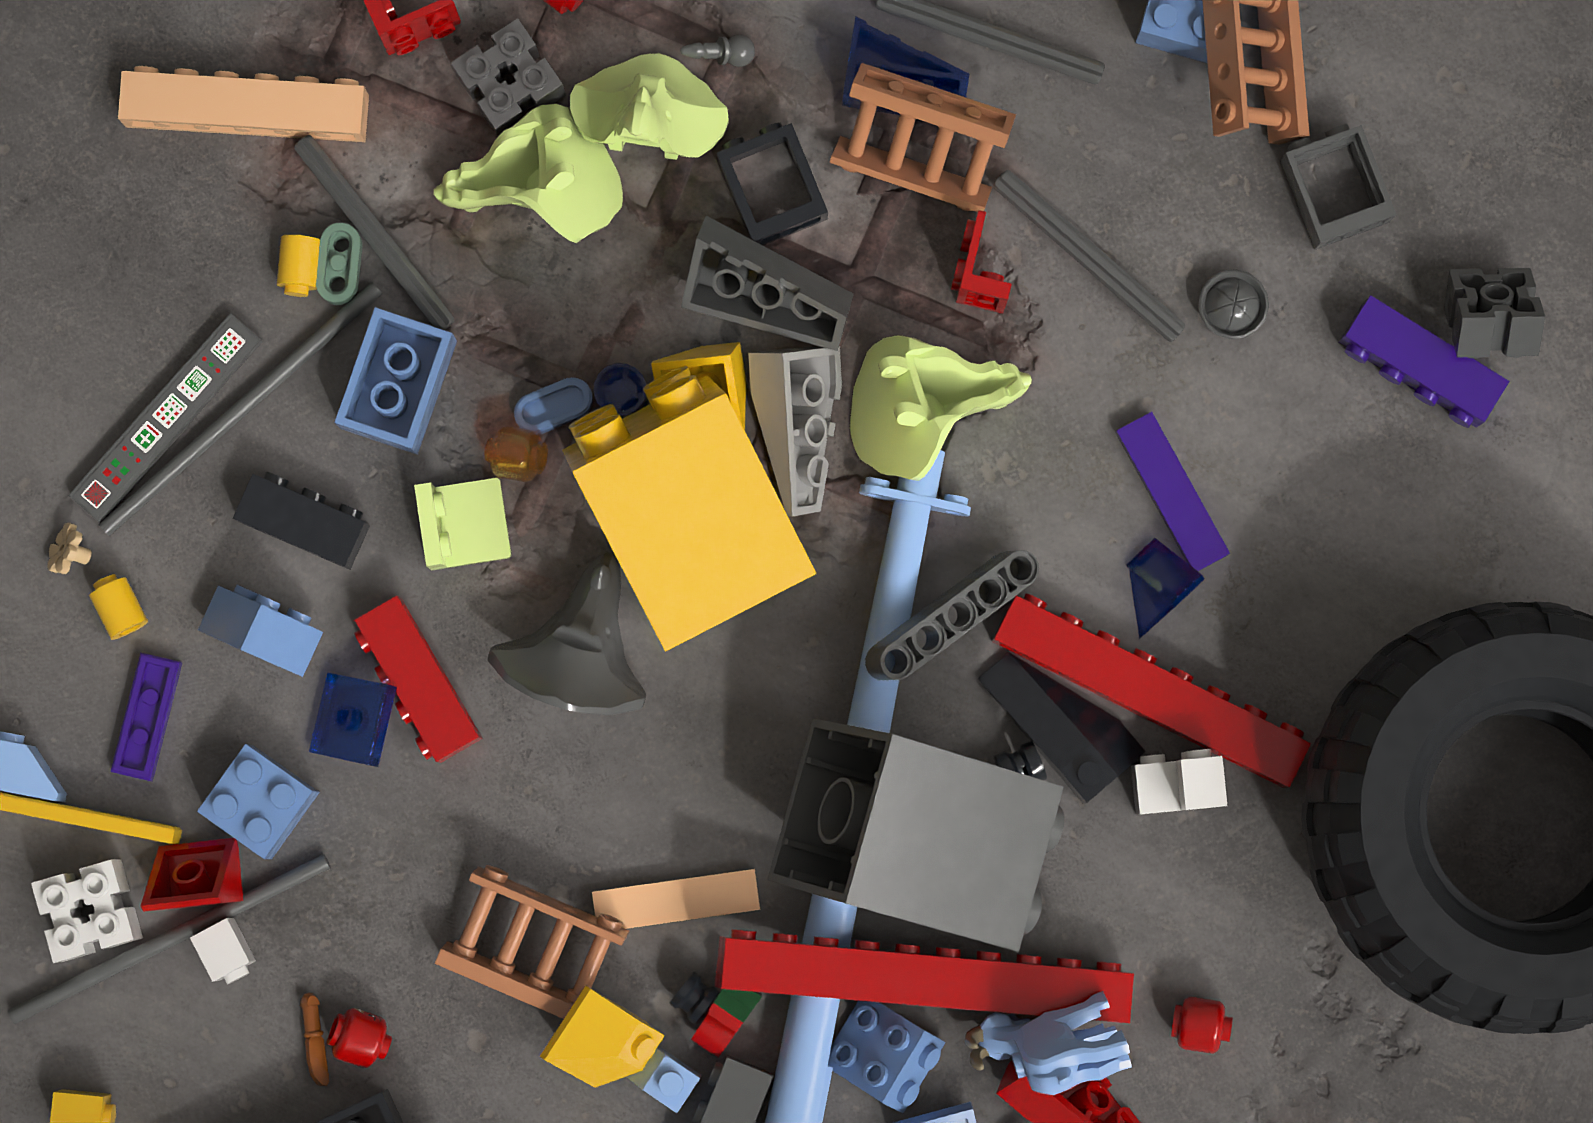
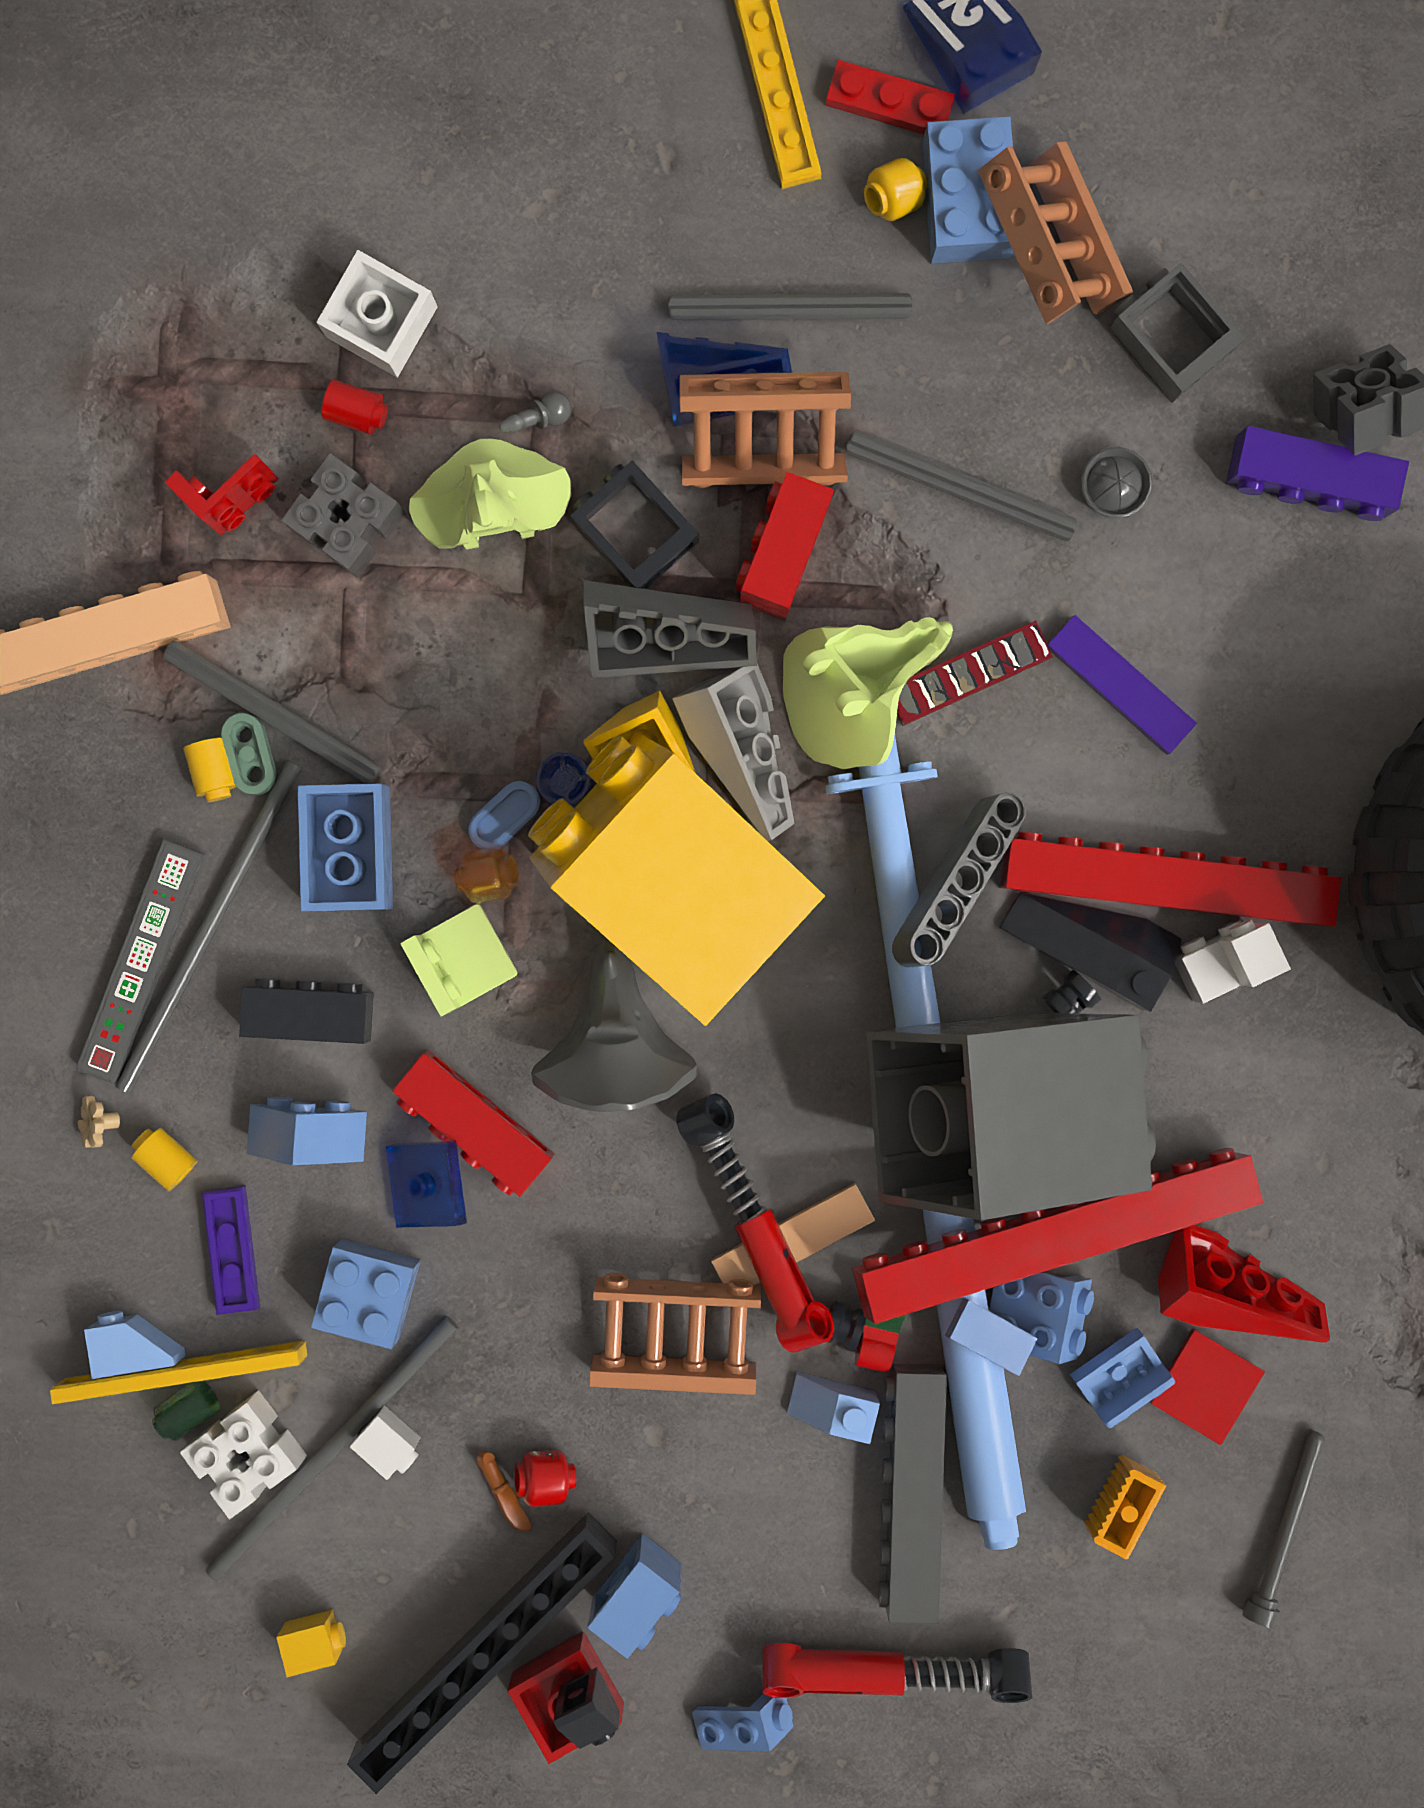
camera: 20 degrees left, 5 degrees up
(47, 850) = (185, 1410): none -> clear green brick
(194, 875) = (332, 1387): red slope -> none
(545, 168) = (414, 591): yellowish green animal -> none
(601, 1041) = (774, 1400): yellow slope -> none
(655, 971) = (800, 1318): none -> piece
(827, 1051) = (991, 1336): none -> medium blue tile
(902, 250) = (783, 544): none -> red brick
(981, 291) = (879, 555): red bracket -> none
(1035, 430) = (972, 672): none -> tile
(1048, 1048) = (1207, 1258): light blue animal -> none
(1159, 583) = (1142, 777): clear blue slope -> none
(1201, 1025) = (1327, 1178): red head -> none

